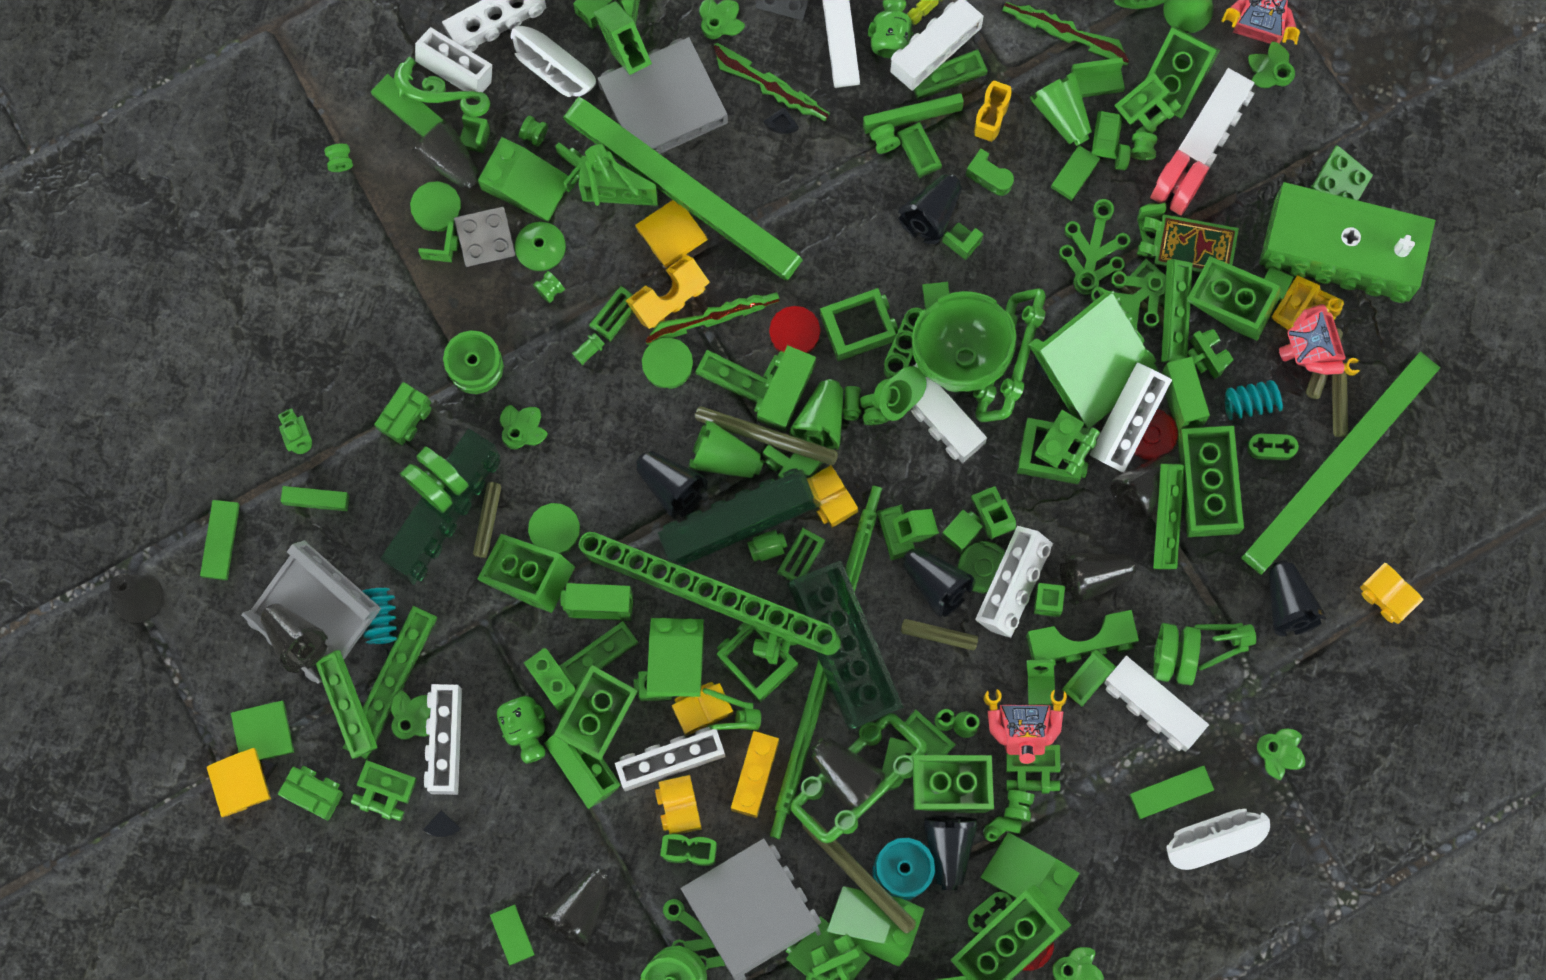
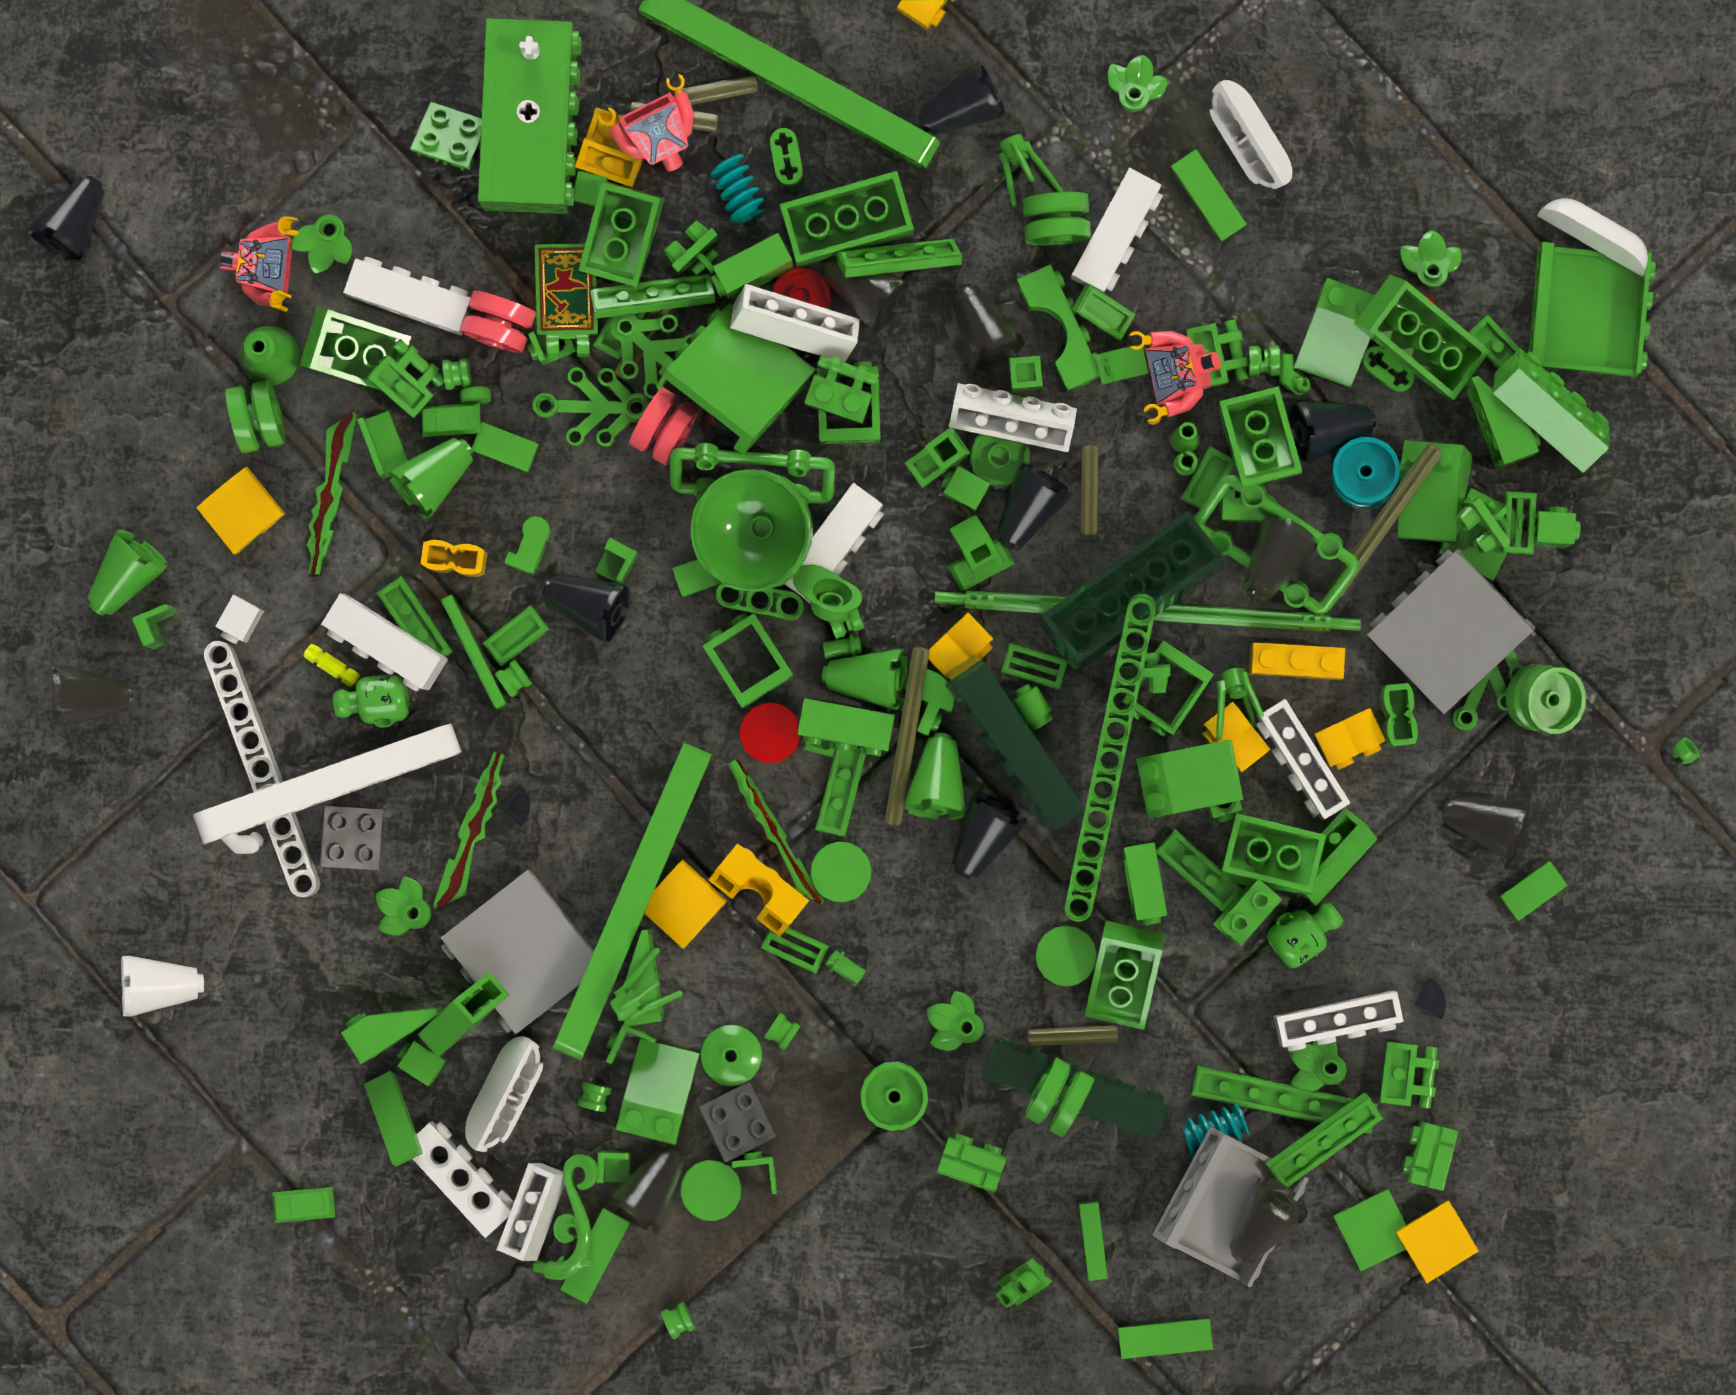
camera: 100 degrees left, 10 degrees up
(1066, 293) = (667, 428): none -> coral wheel

